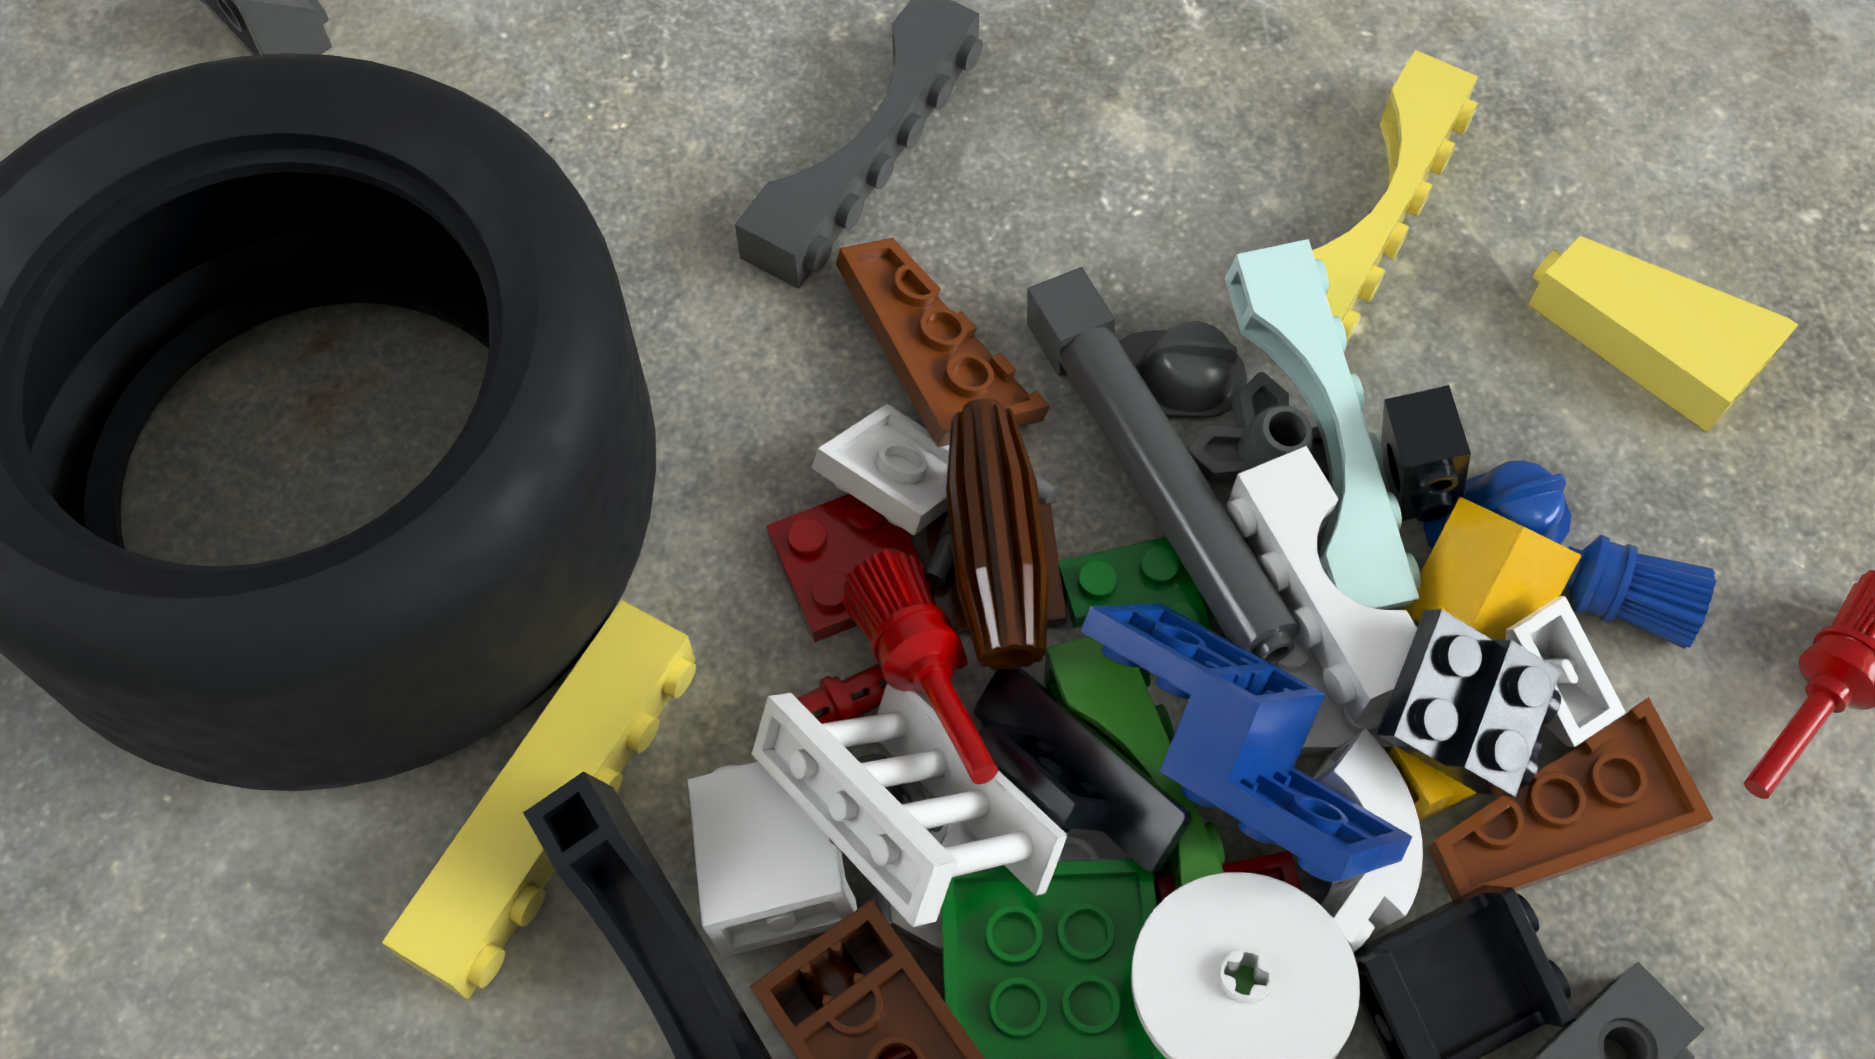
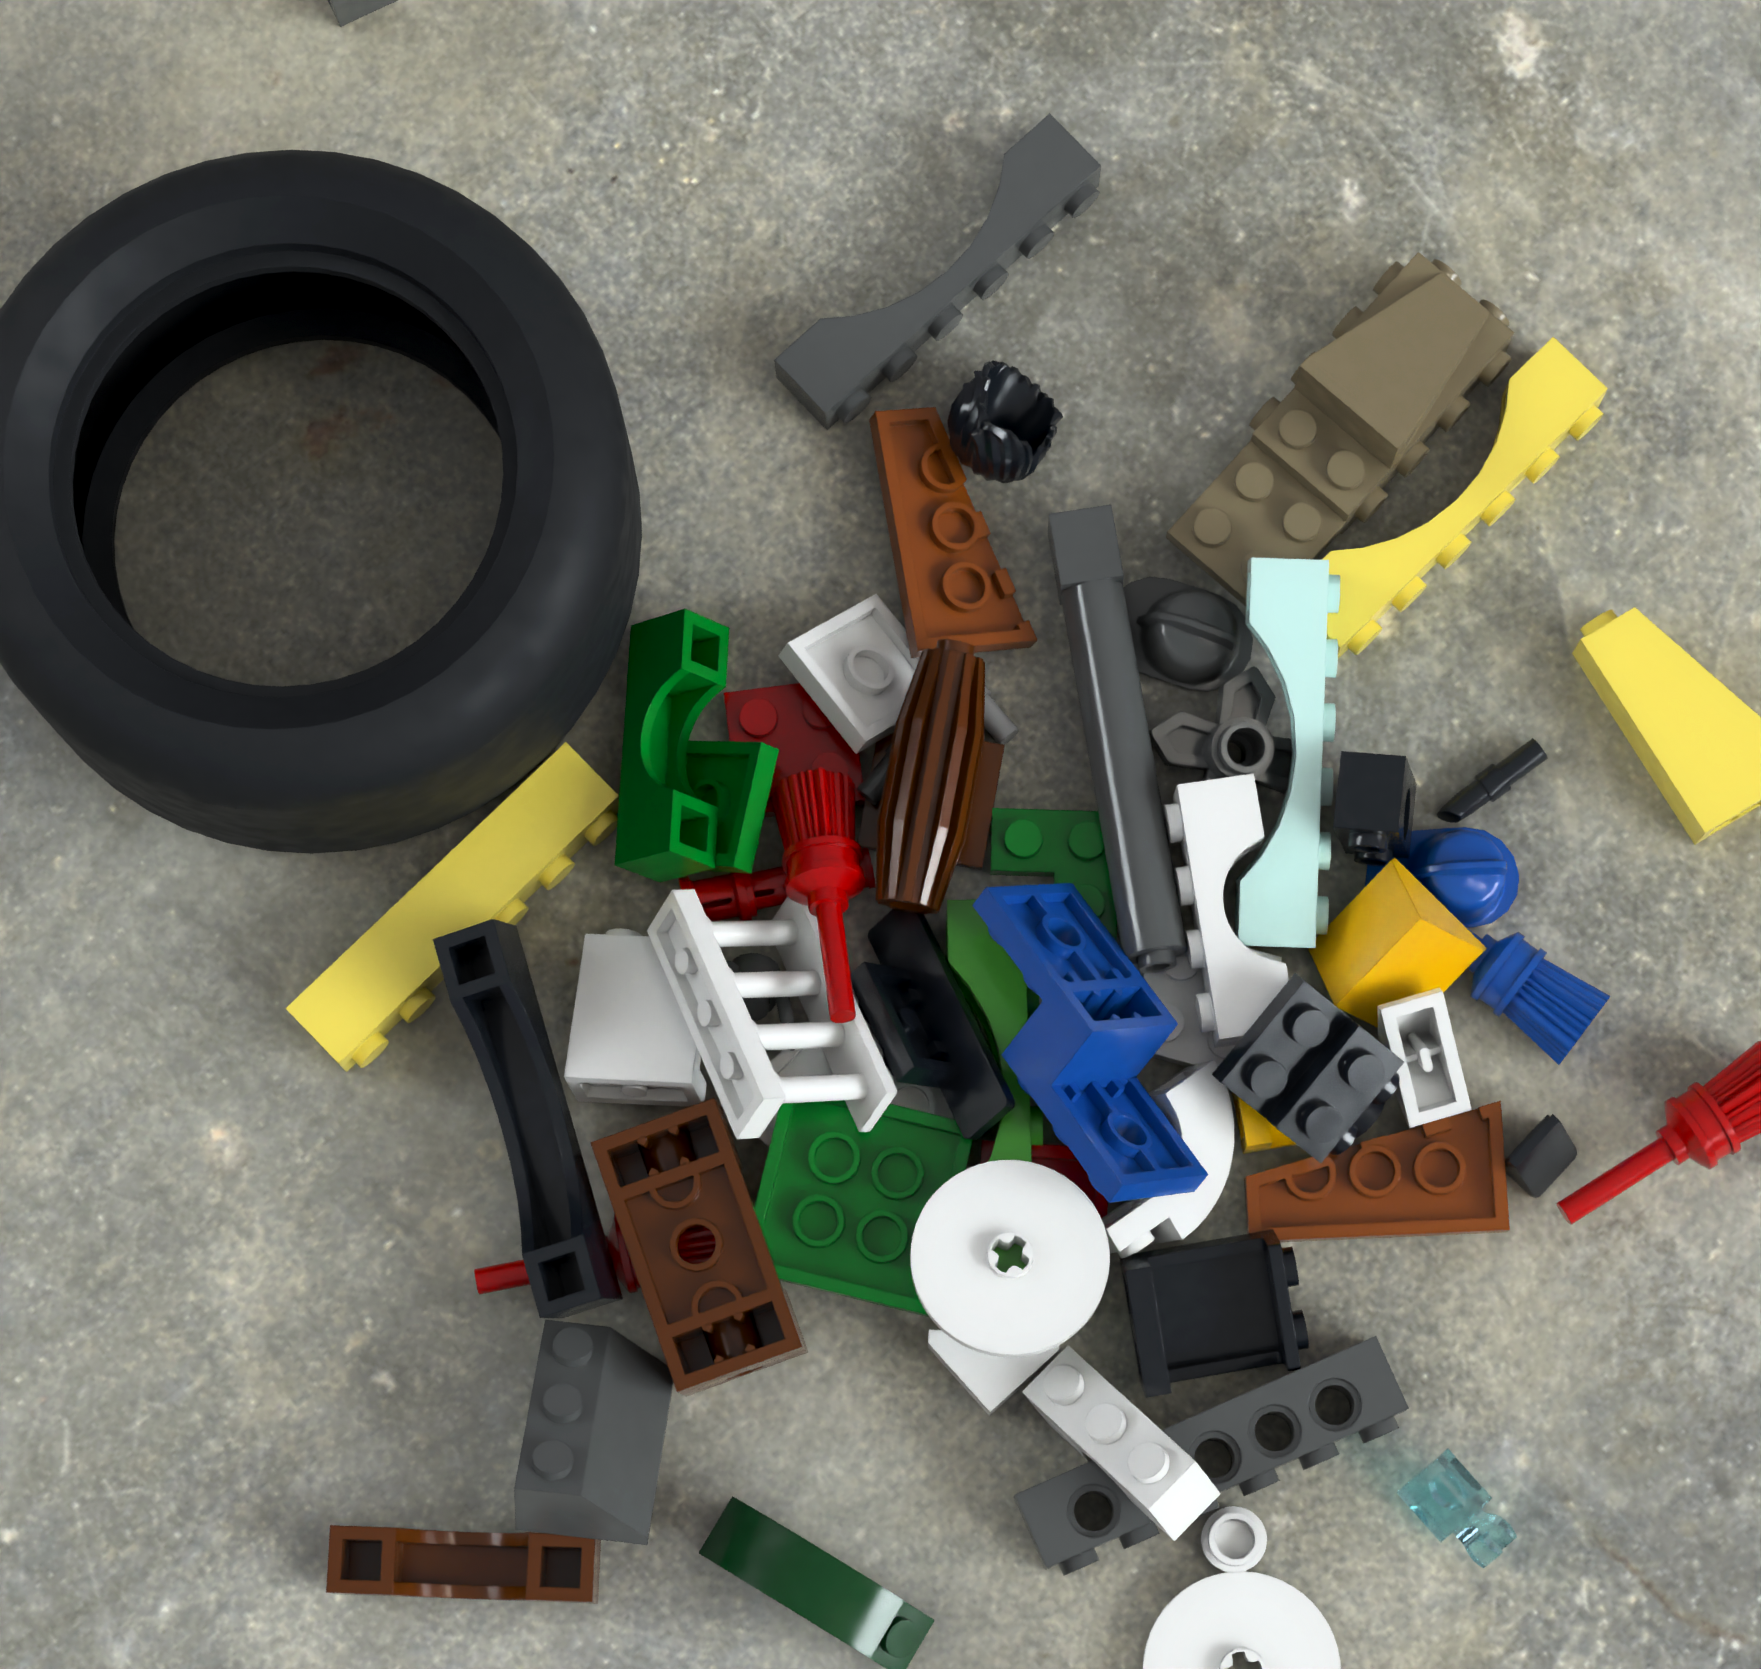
camera: 20 degrees right, 15 degrees up
(711, 516) = (672, 675): none -> green arch
(786, 624) = (739, 783): none -> green plate
(957, 234) = (1002, 423): none -> black hair
(1263, 160) = (1348, 423): none -> dark tan wedge
(1509, 423) = (1493, 782): none -> black piece
(1705, 739) = (1541, 1156): none -> black slope

